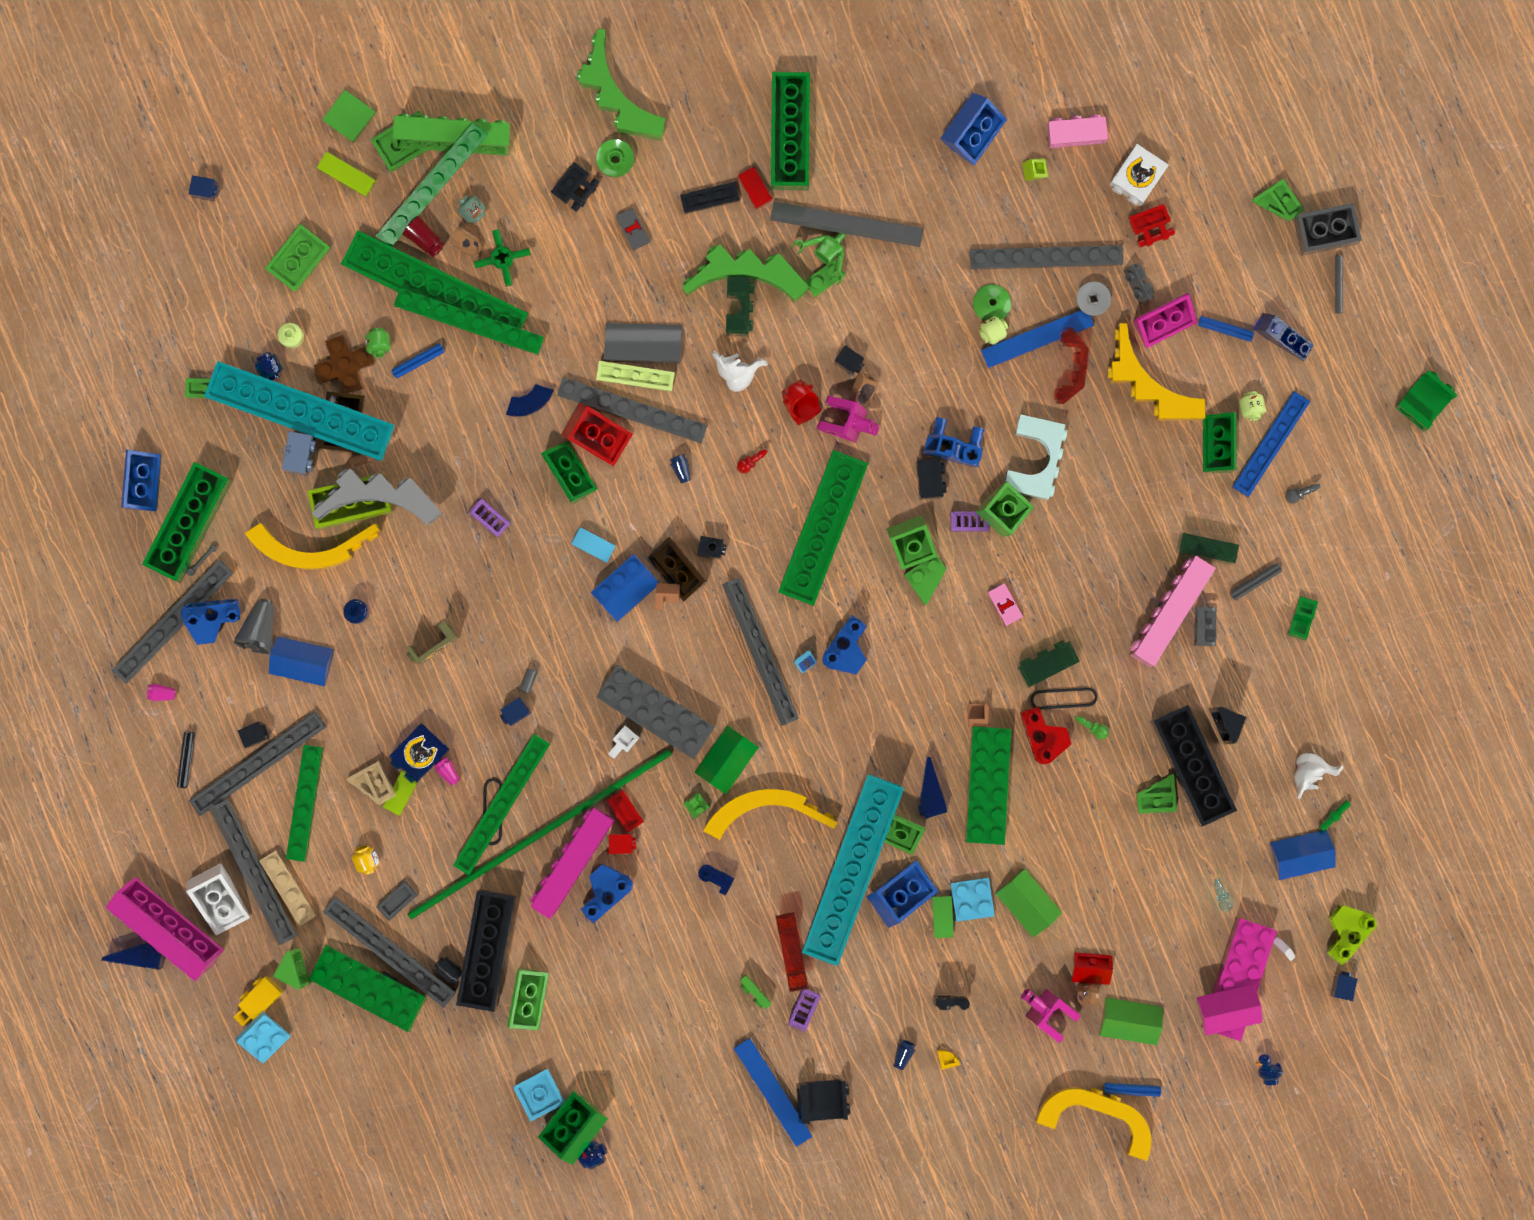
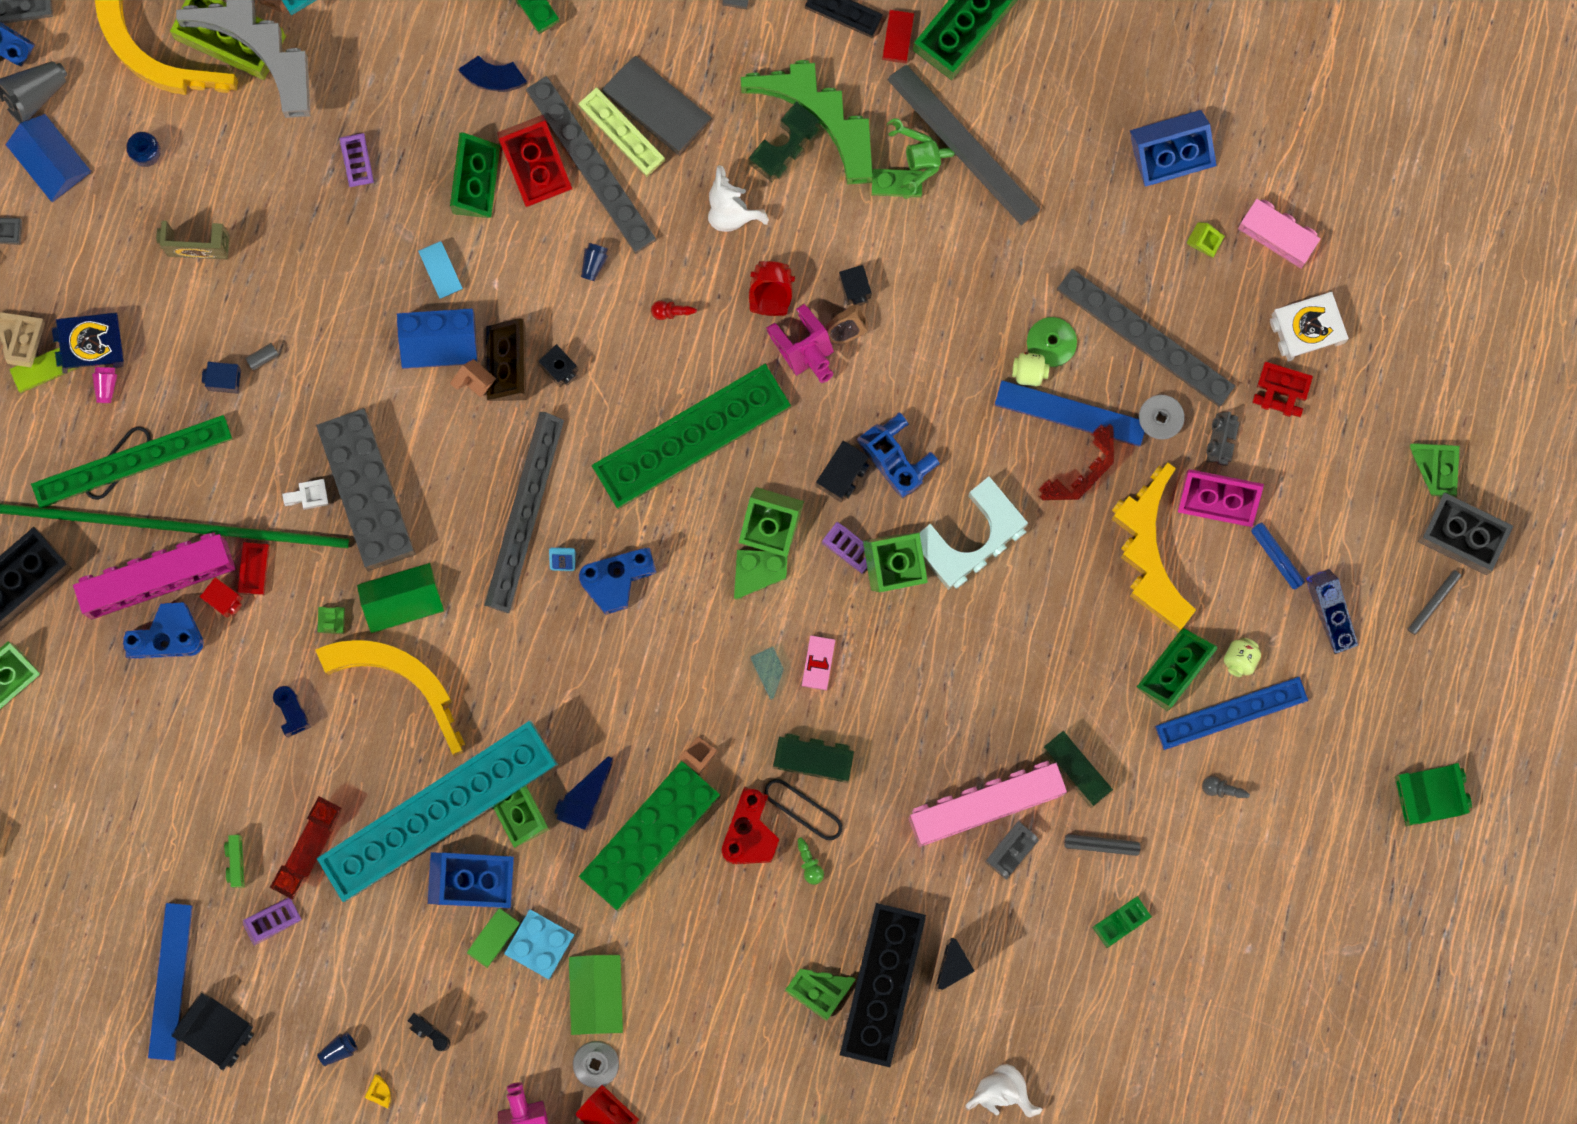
camera: 35 degrees right, 5 degrees down
(979, 631) = (768, 669): none -> clear light blue tile
(1051, 946) = (601, 1052): none -> light grey piece

